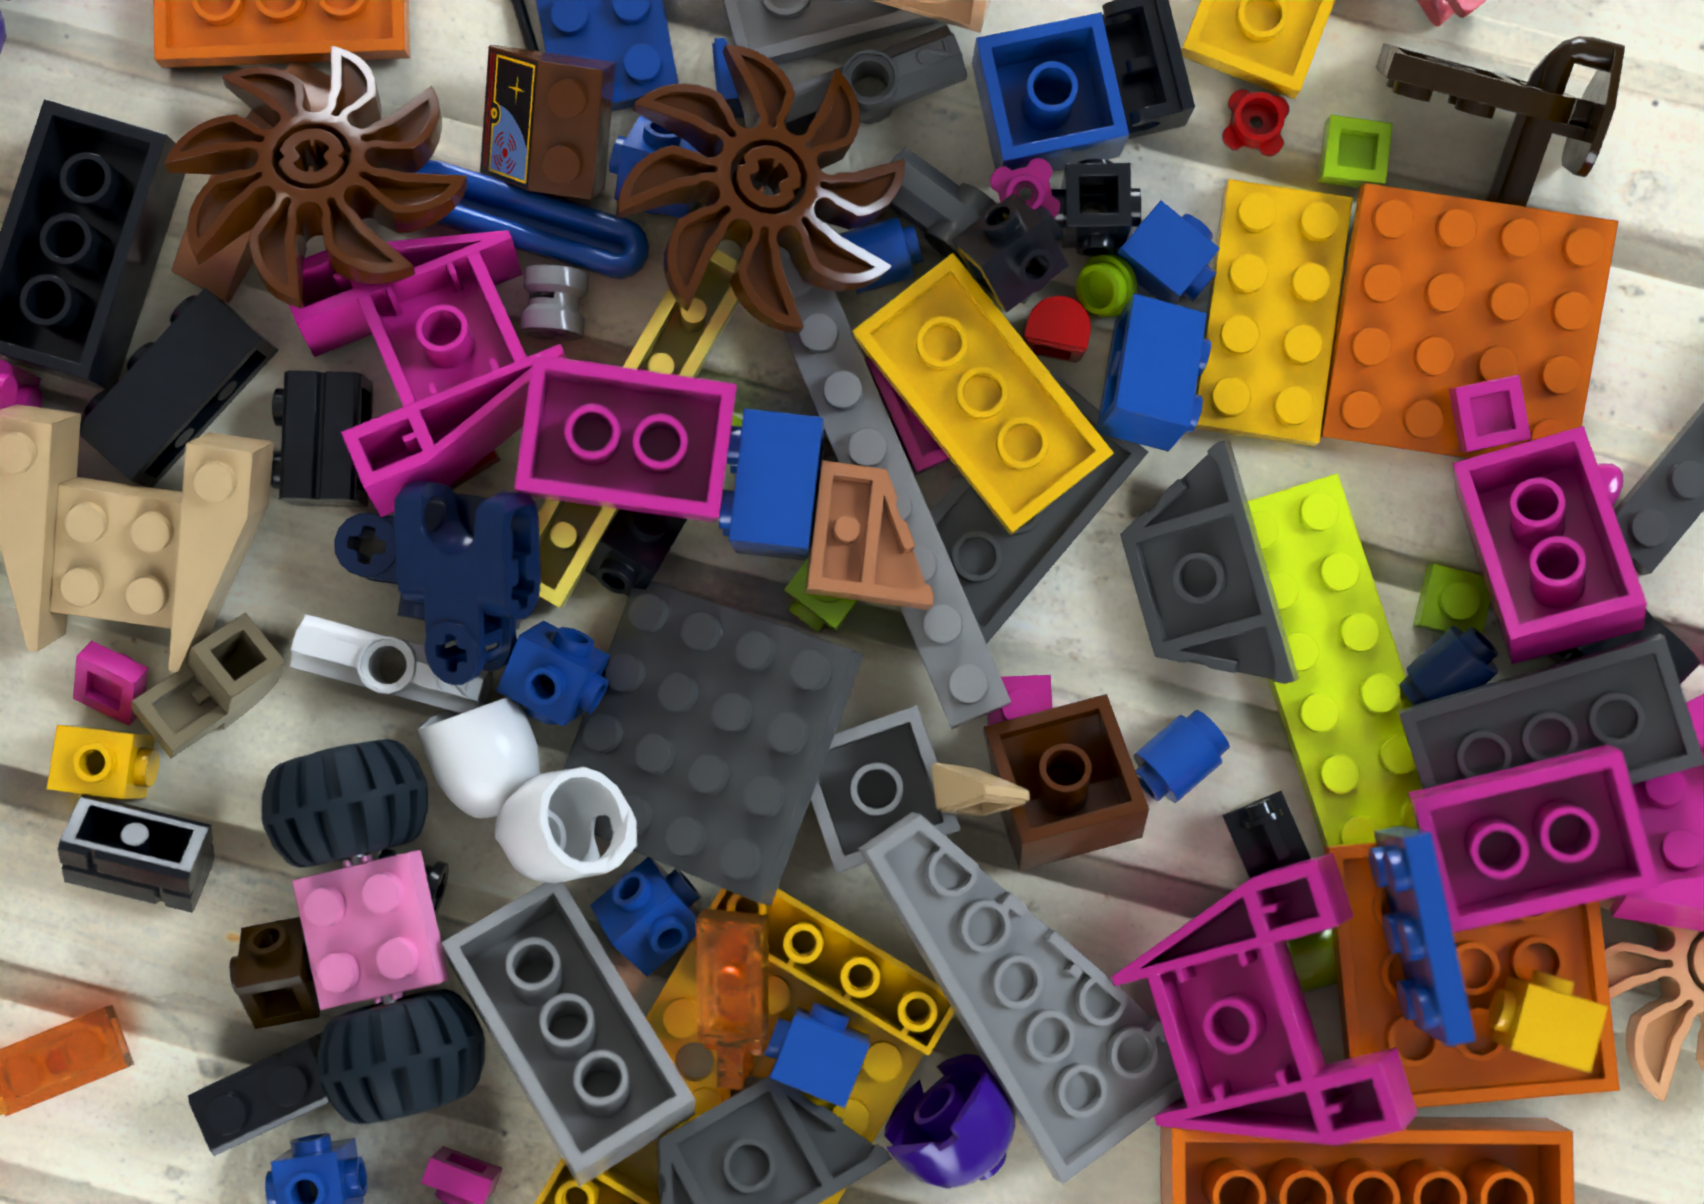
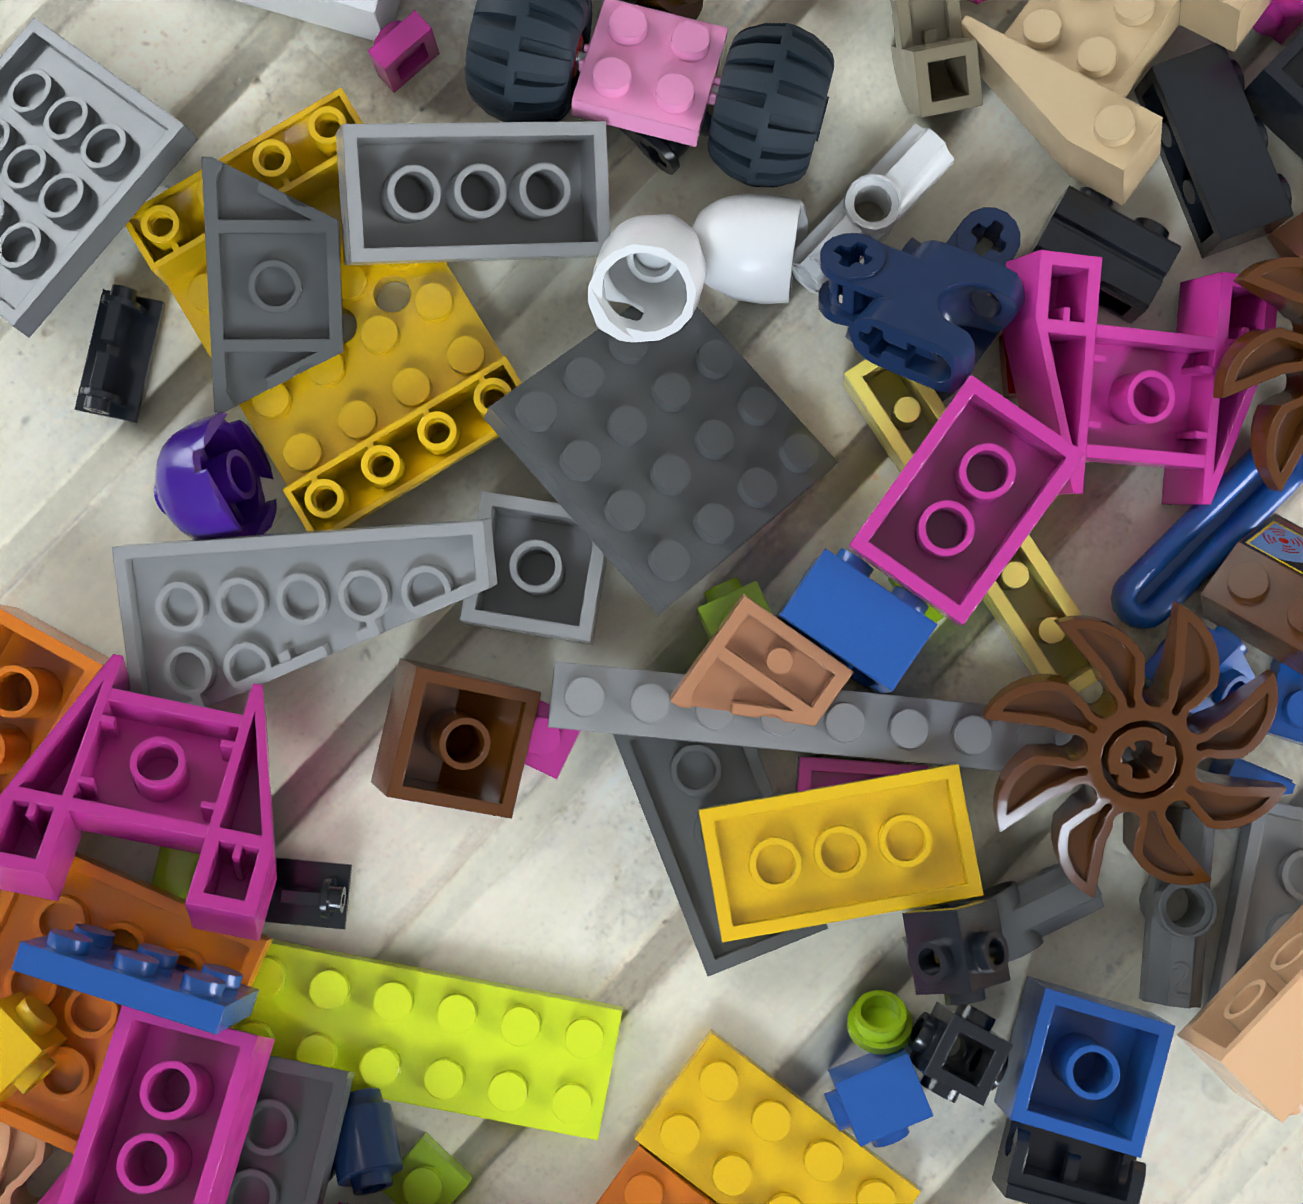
camera: 120 degrees right, 0 degrees up
(554, 302) = (1122, 515): light grey wheel -> none
(555, 674) = (788, 343): blue brick -> none
(633, 550) = (861, 468): black bracket -> none
(649, 914) = (535, 316): blue brick -> none
(732, 990) = (430, 349): clear orange hinge -> none
(818, 1053) = (337, 396): blue brick -> none
(892, 245) = (1020, 842): blue brick -> none
(973, 791) = (488, 649): tan slope -> none
(1033, 177) = (1015, 1008): dark pink plate -> none
(1058, 329) = (863, 955): red brick -> none
(1154, 373) = (776, 1021): blue brick -> none
(1180, 756) = (422, 854): blue brick -> none
(1207, 576) = (567, 967): dark grey wing -> none

